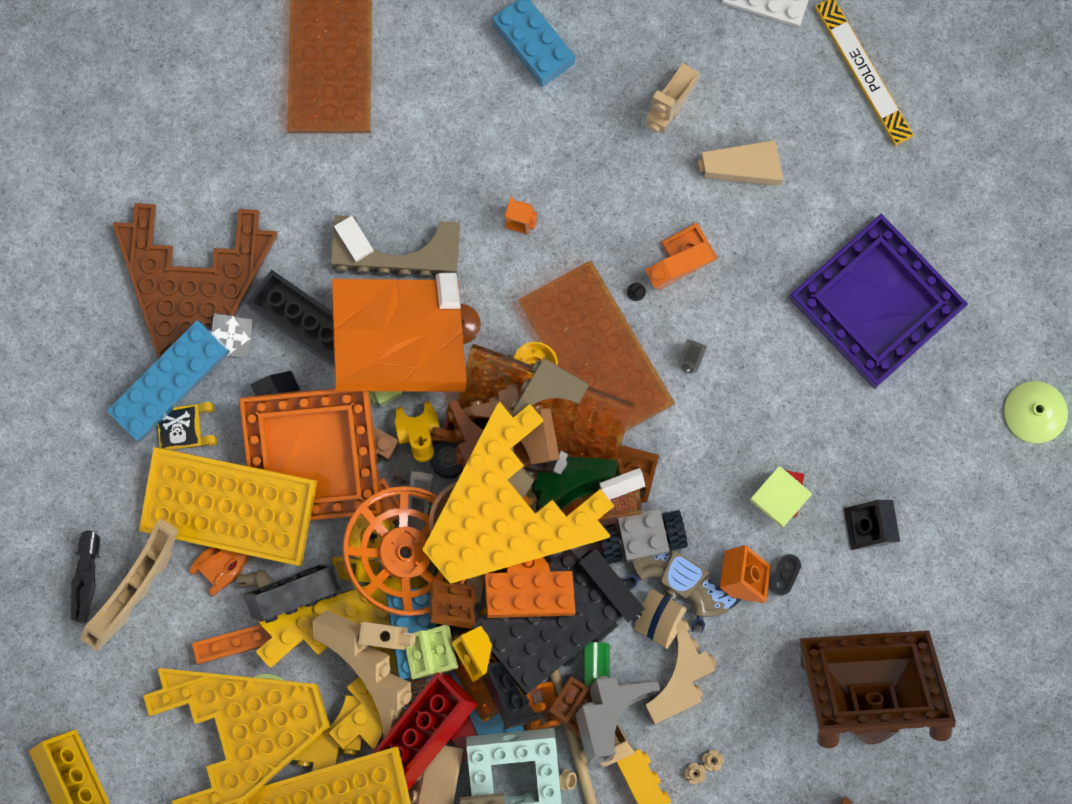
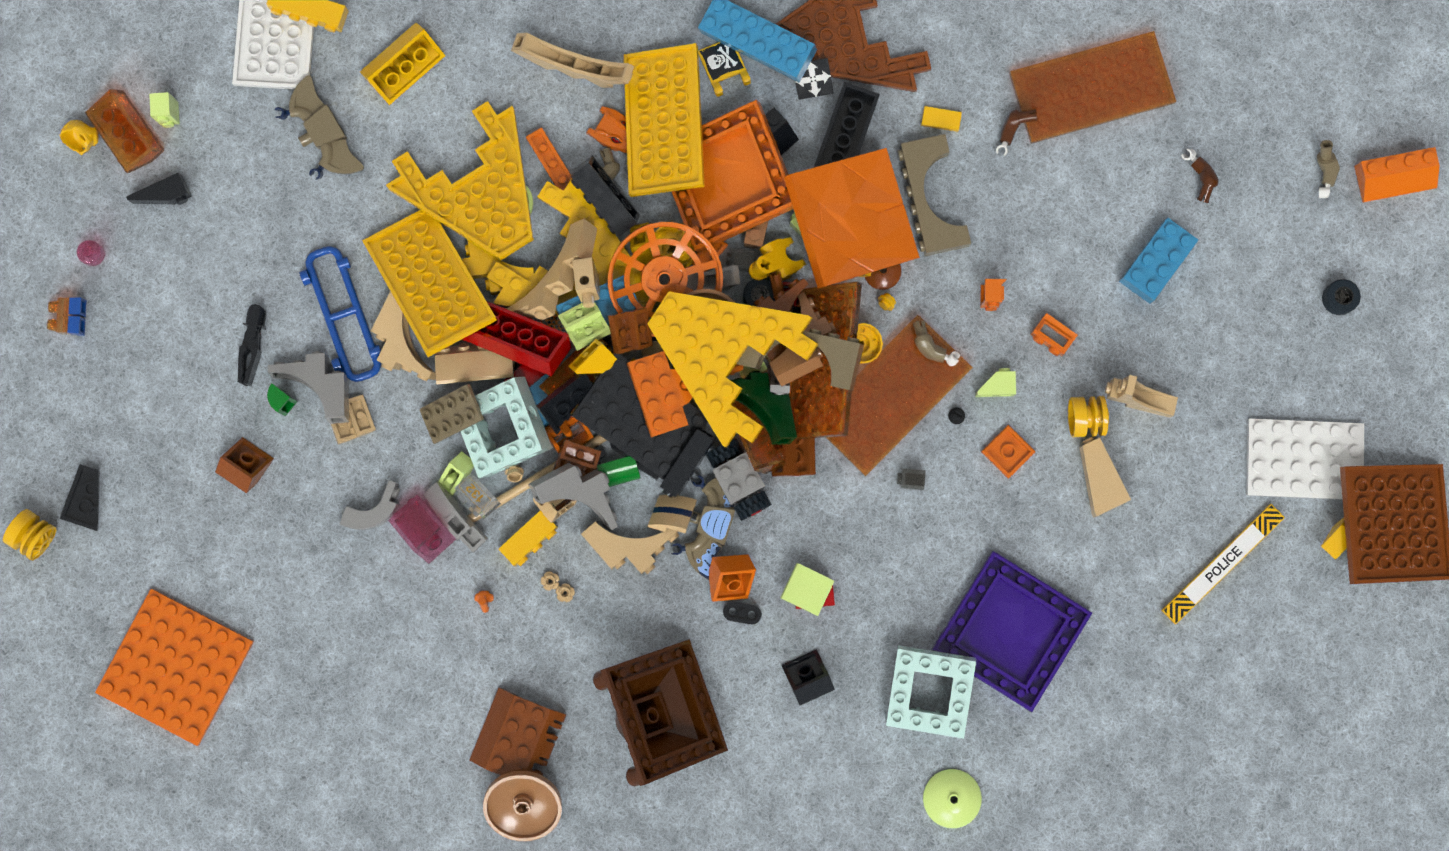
camera: 75 degrees right, 5 degrees up
(85, 575) = (572, 22): black arm -> none
(315, 216) = (941, 119): none -> yellow tile
(345, 145) = (1011, 125): none -> reddish brown arm
(354, 238) = (928, 156): white tile -> none
(448, 291) = (906, 250): white tile -> none
(495, 328) = (886, 302): none -> yellow plate
(557, 298) = (929, 349): none -> dark tan arm
(580, 168) = (1053, 335): none -> orange window
(616, 238) = (999, 385): none -> yellowish green slope
(623, 484) = (776, 447): white tile -> none
(676, 157) = (1091, 416): none -> yellow wheel
(679, 265) = (989, 445): orange slope -> none
(884, 407) = (936, 663): none -> light aqua brick

